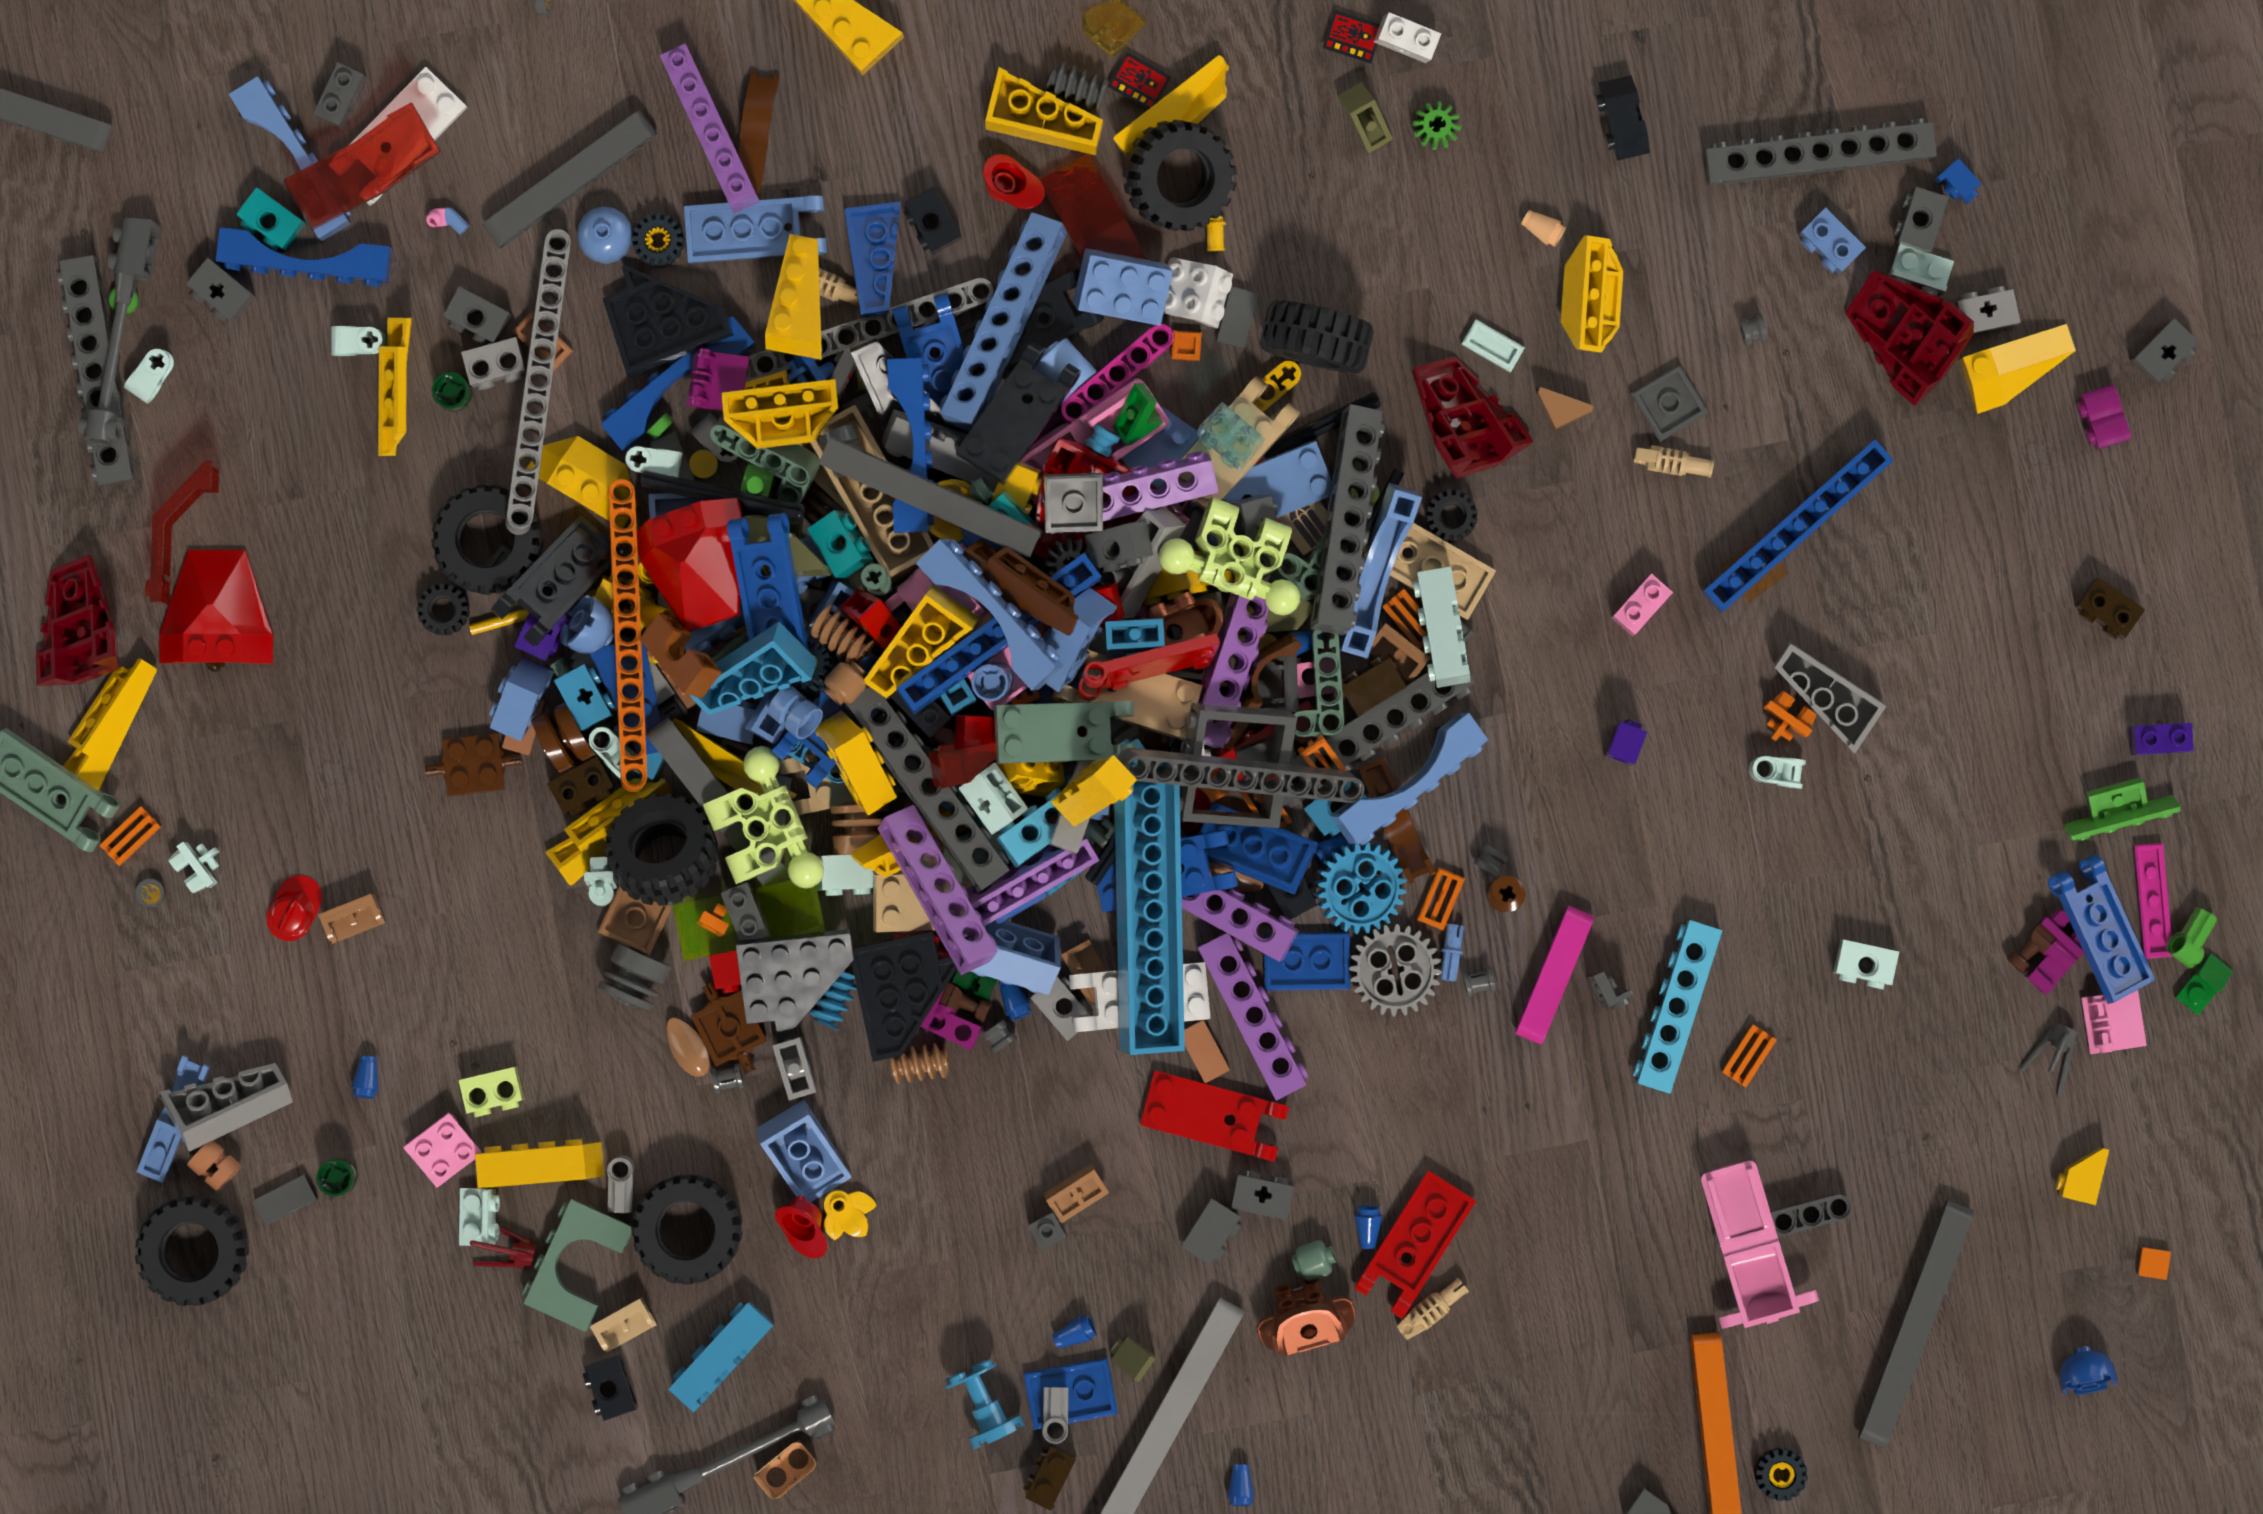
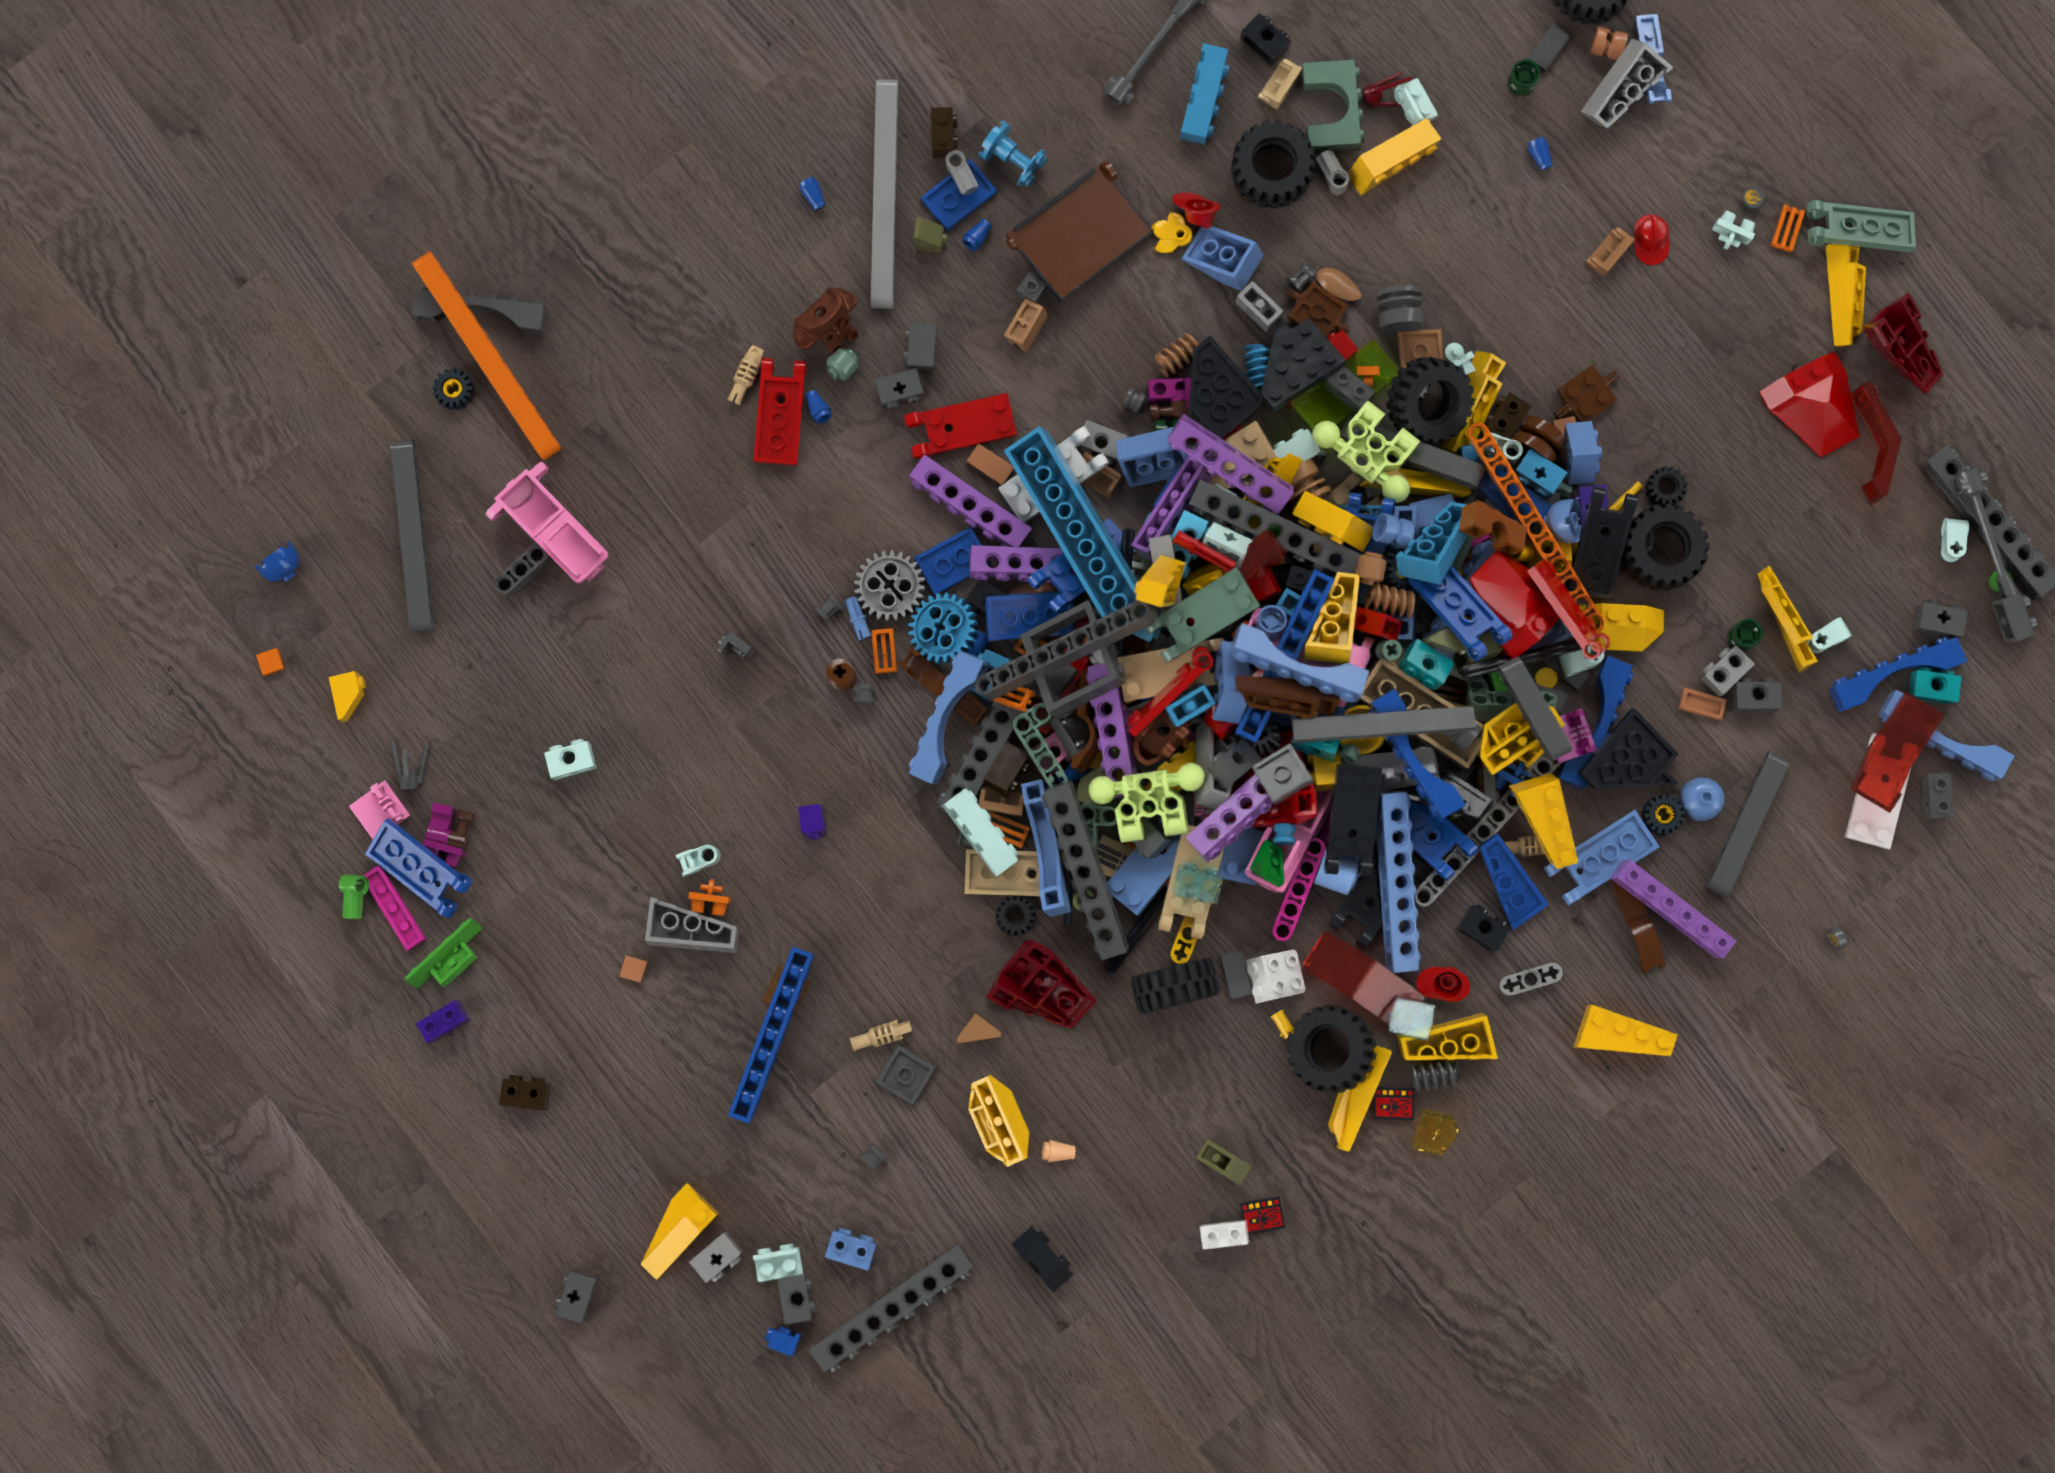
camera: 155 degrees right, 5 degrees down
(442, 1149) = (1464, 133): bright pink hinge -> none
(445, 217) = (1816, 753): arm -> none
(490, 1084) = (1456, 191): yellowish green brick -> none
(544, 369) = (1699, 678): light grey beam -> none
(646, 520) = (1567, 609): none -> red hinge
(660, 426) = (1590, 688): bright green tile -> none
(748, 427) = (1534, 708): none -> dark grey beam
(791, 1473) = (1120, 28): light nougat piece -> none
(932, 134) = (1516, 989): none -> light grey beam
(955, 1268) = (1079, 232): none -> reddish brown door
(1015, 1001) = (1134, 427): blue cone -> none
(1022, 802) = (1204, 551): none -> red axle
(1070, 161) = (1411, 1018): none -> clear light blue piece
(1122, 286) = (1328, 950): medium blue brick -> none
(1186, 345) = (1261, 936): orange tile -> none
(1429, 119) = (1163, 1180): bright green gear -> none
(1493, 346) = (1049, 1049): light aqua tile -> none
(1554, 975) = (779, 640): dark pink beam -> none
(1642, 605) = (851, 923): bright pink brick -> none
(1707, 939) = (669, 609): medium azure brick -> none
(1736, 1076) = (620, 637): orange tile -> none
(1910, 333) = (762, 1212): dark red wedge -> none
(1915, 685) = (633, 969): none -> nougat tile
(2104, 418) = (596, 1226): magenta brick -> none
(2204, 984) = (329, 869): green slope -> none

